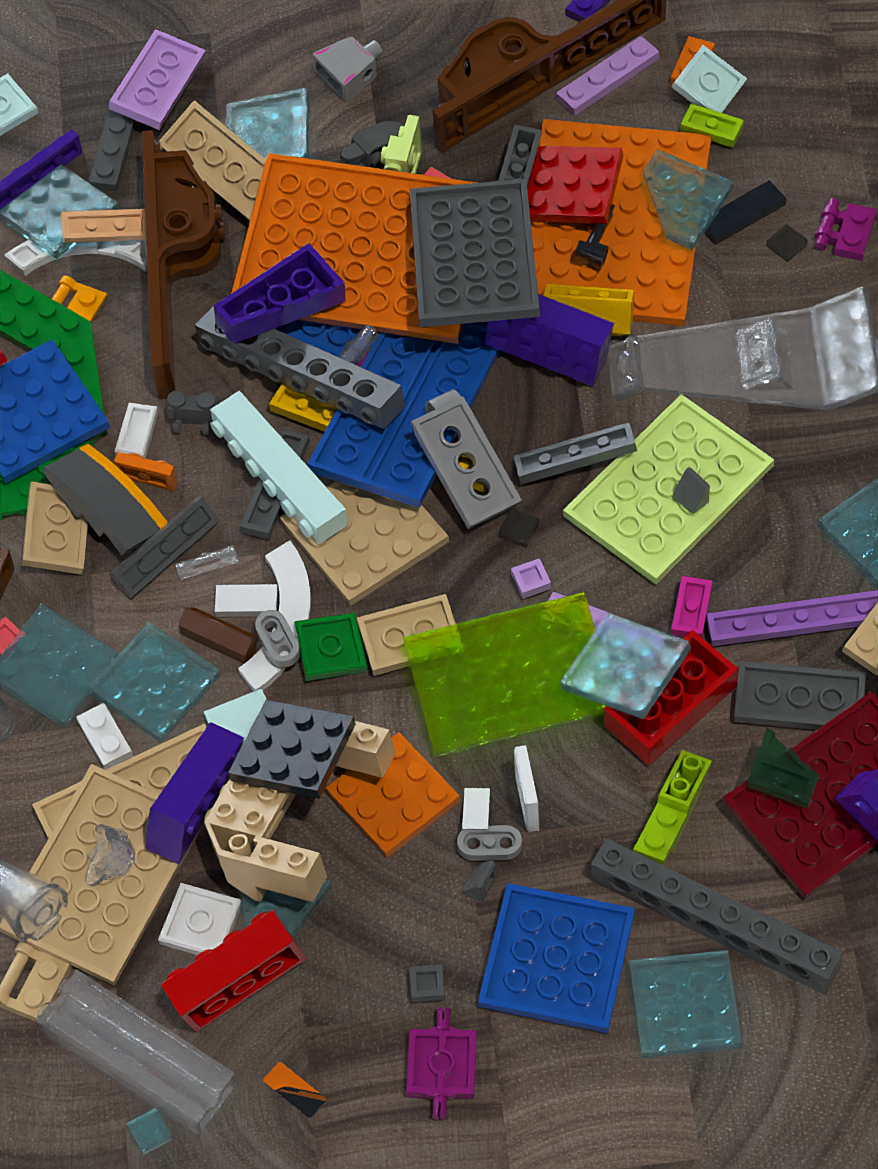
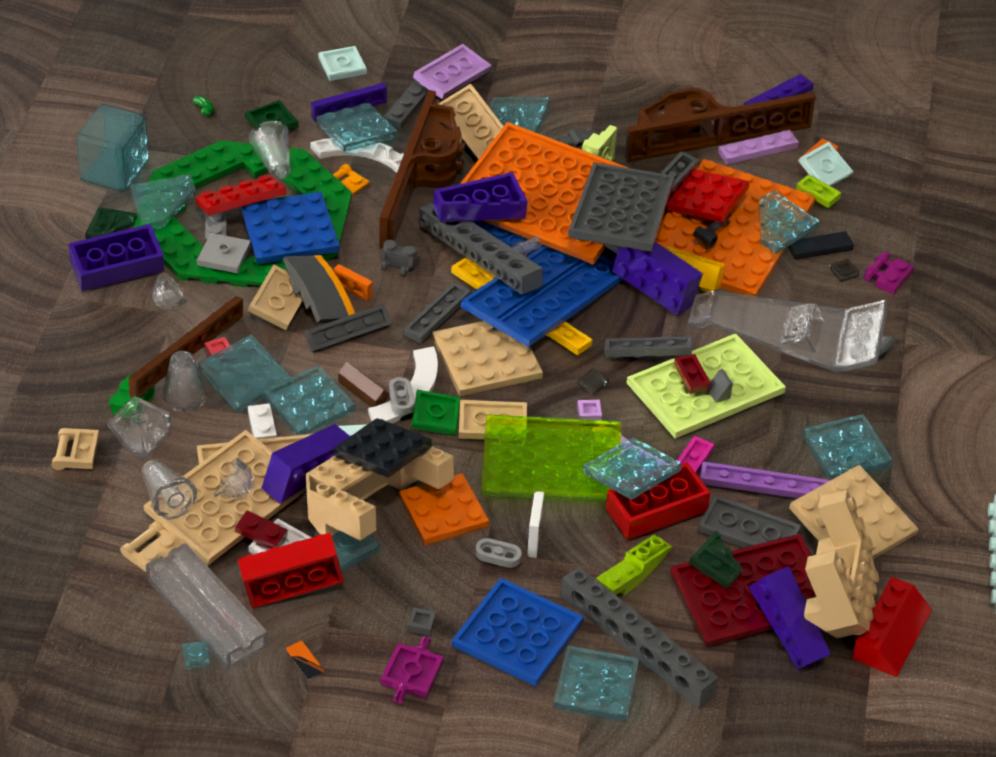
camera: 10 degrees right, 15 degrees down
(103, 225) = (380, 138): light nougat plate -> none
(137, 429) = (359, 258): white tile -> none
(168, 914) = (261, 530): none -> dark red plate
(186, 569) = (372, 344): clear pin -> none
(245, 600) = (386, 371): white tile -> none
(278, 467) = (442, 300): light aqua brick -> none
(347, 66) = (583, 97): light grey torso -> none
(453, 413) = (572, 296): light grey hinge -> none
(476, 808) = (497, 530): white sticker -> none
(480, 880) = (484, 574): dark grey slope -> none
(649, 481) = (692, 373): none -> dark red plate

